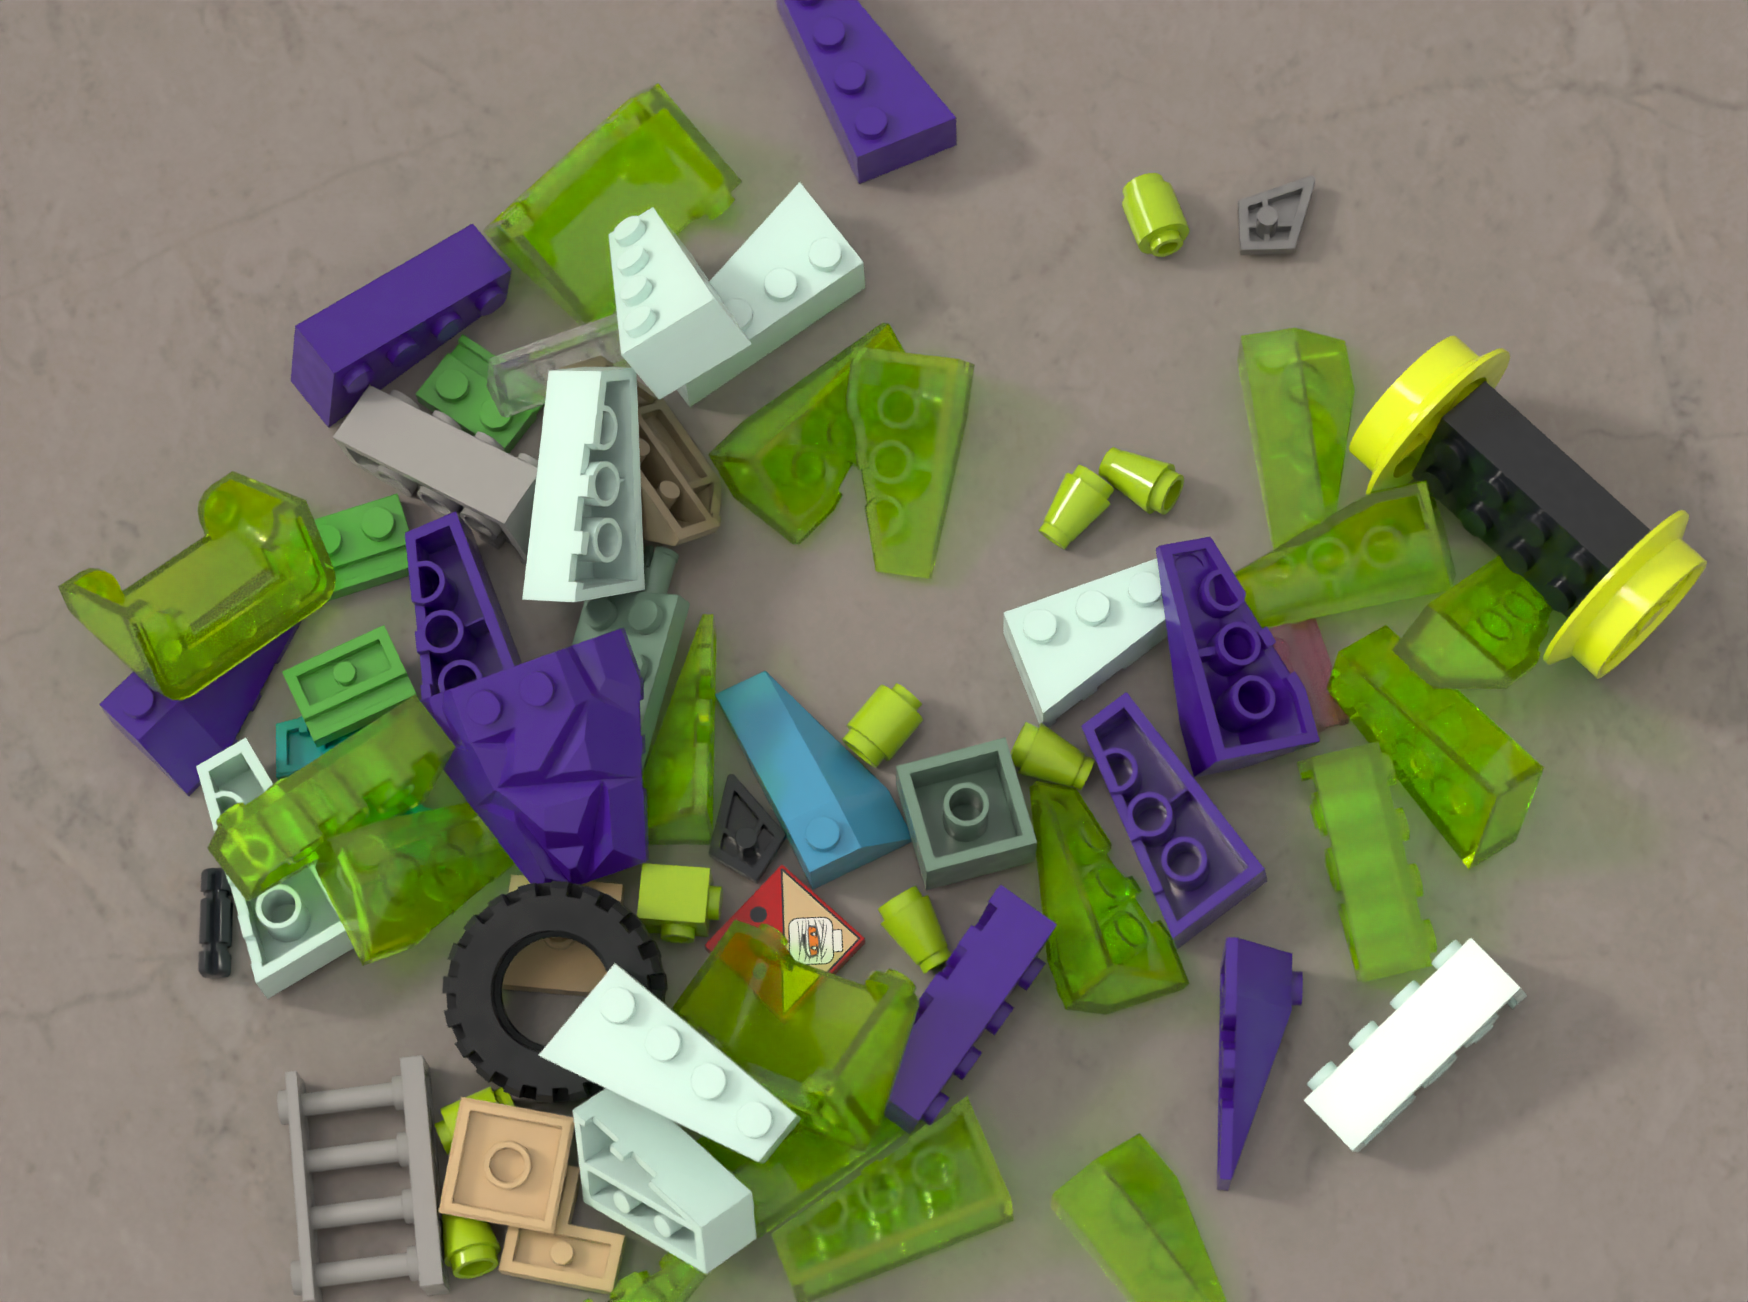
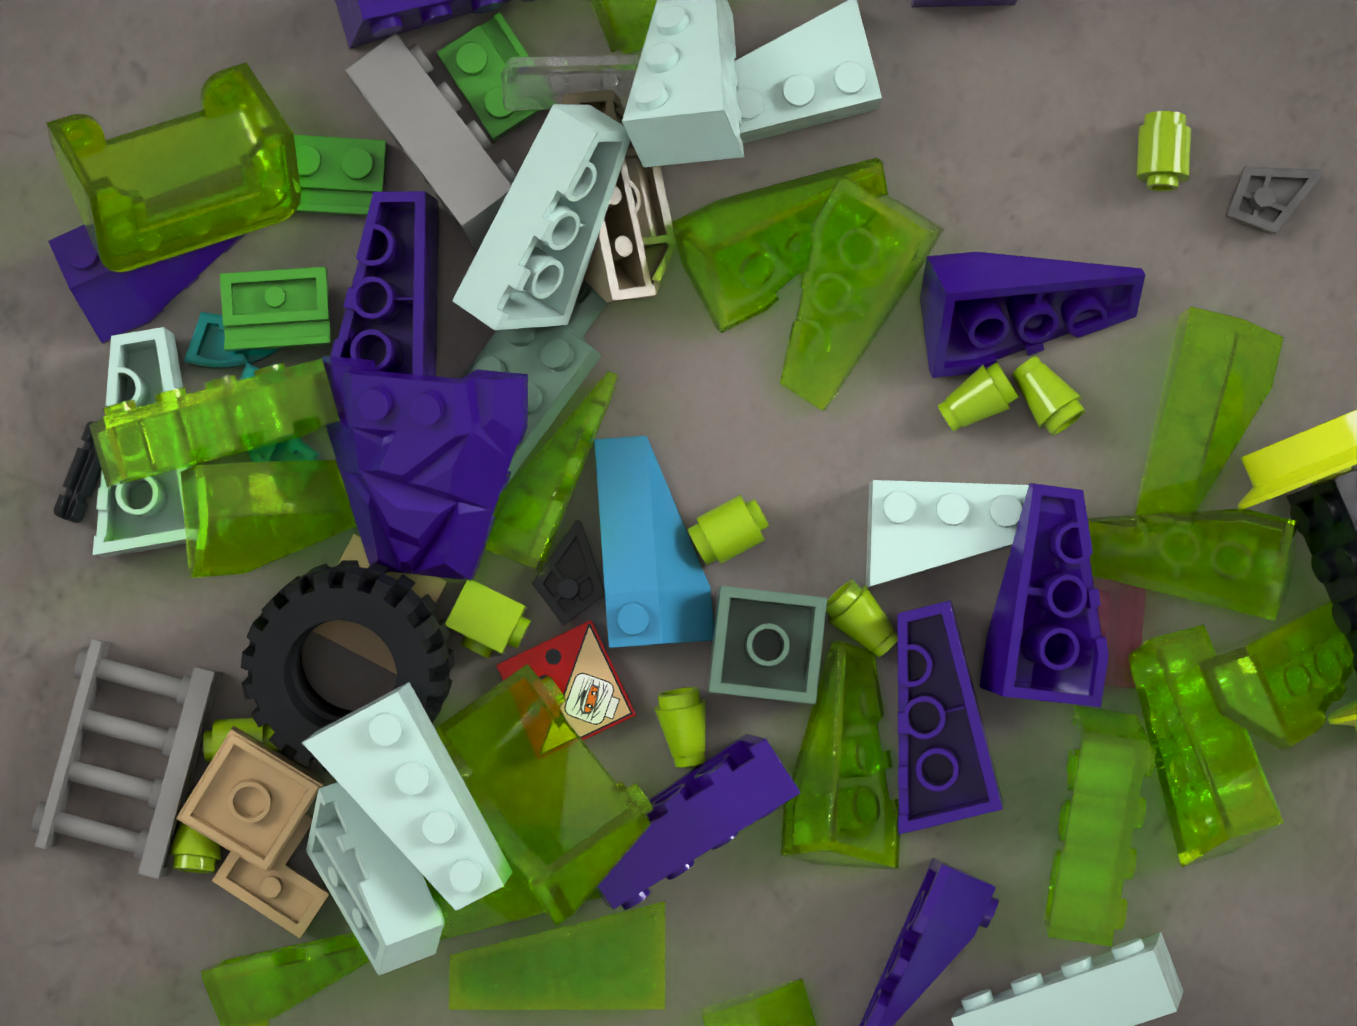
camera: 15 degrees right, 15 degrees up
(1074, 407) = (1001, 304): none -> dark purple wedge

